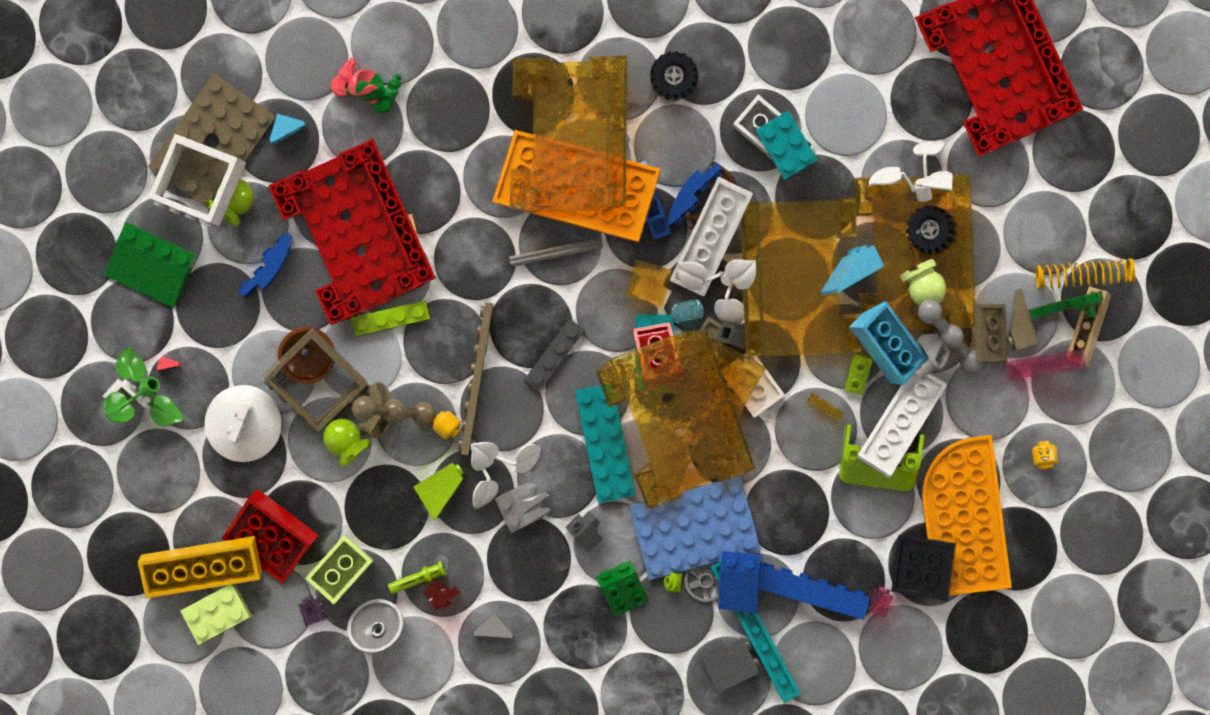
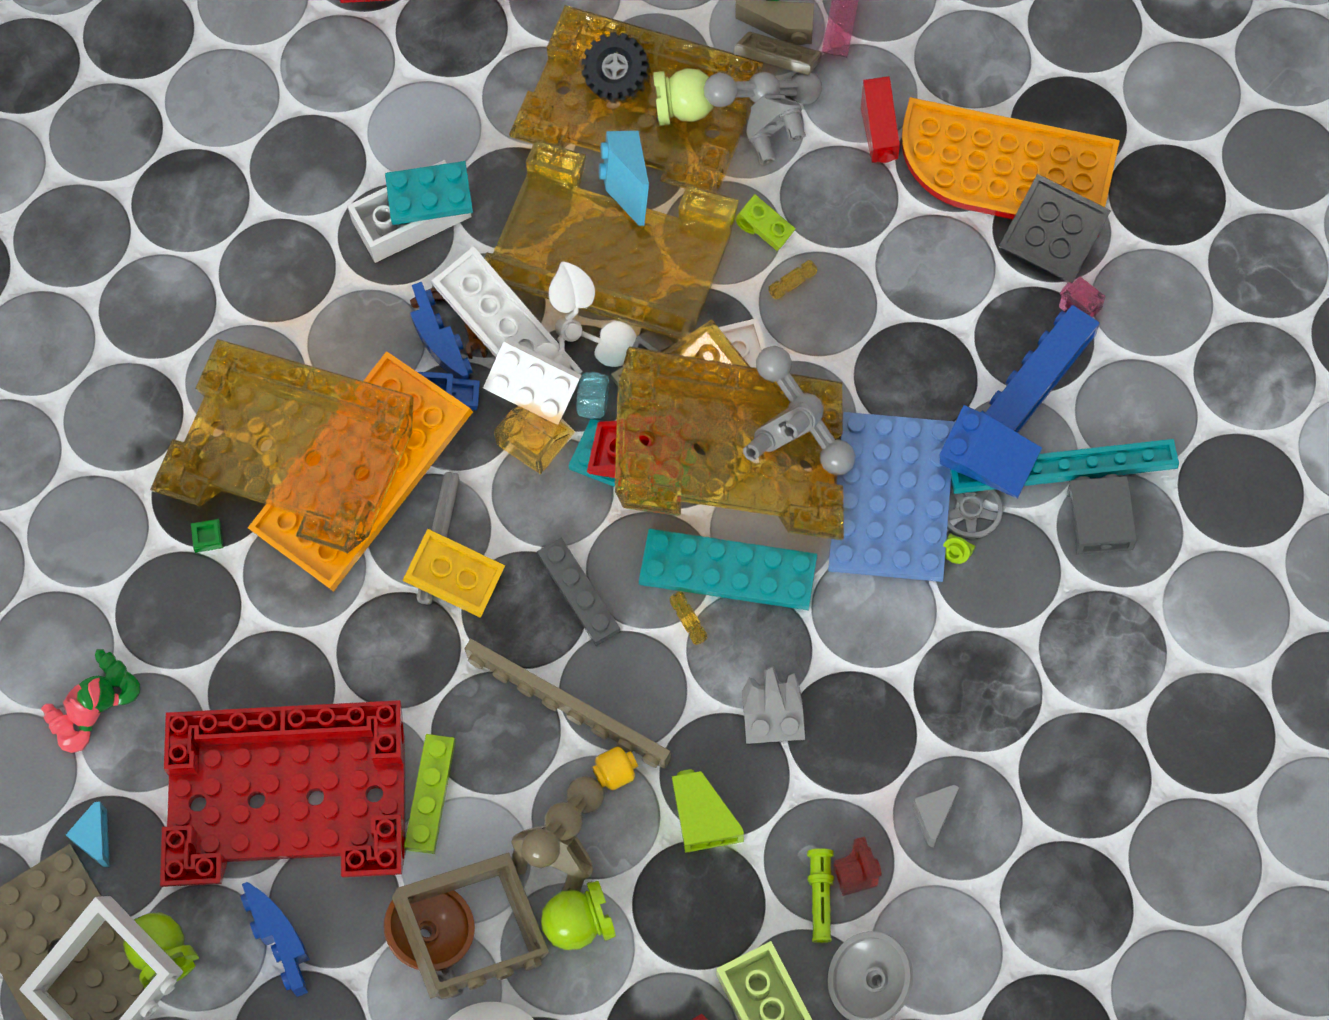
camera: 70 degrees left, 20 degrees down
(483, 457) = (677, 710): white plant -> none
(502, 105) = (207, 535): none -> green tile
(533, 273) = (453, 573): none -> yellow plate
(561, 432) = (688, 618): none -> clear yellow axle
(585, 530) = (841, 634): dark grey brick -> none
(622, 588) = (941, 615): green bracket -> none
(673, 66) = (271, 293): black wheel -> none
(678, 270) = (532, 381): none -> white plate
(707, 454) = (801, 416): none -> light grey connector
(857, 472) = (893, 266): lime windscreen -> none
(889, 343) = (741, 163): medium azure slope -> none
(901, 423) = (850, 186): white plate -> none
(937, 180) = (557, 60): white plant -> none
(962, 422) = (880, 119): none -> red slope
(1045, 455) = (960, 47): yellow head -> none

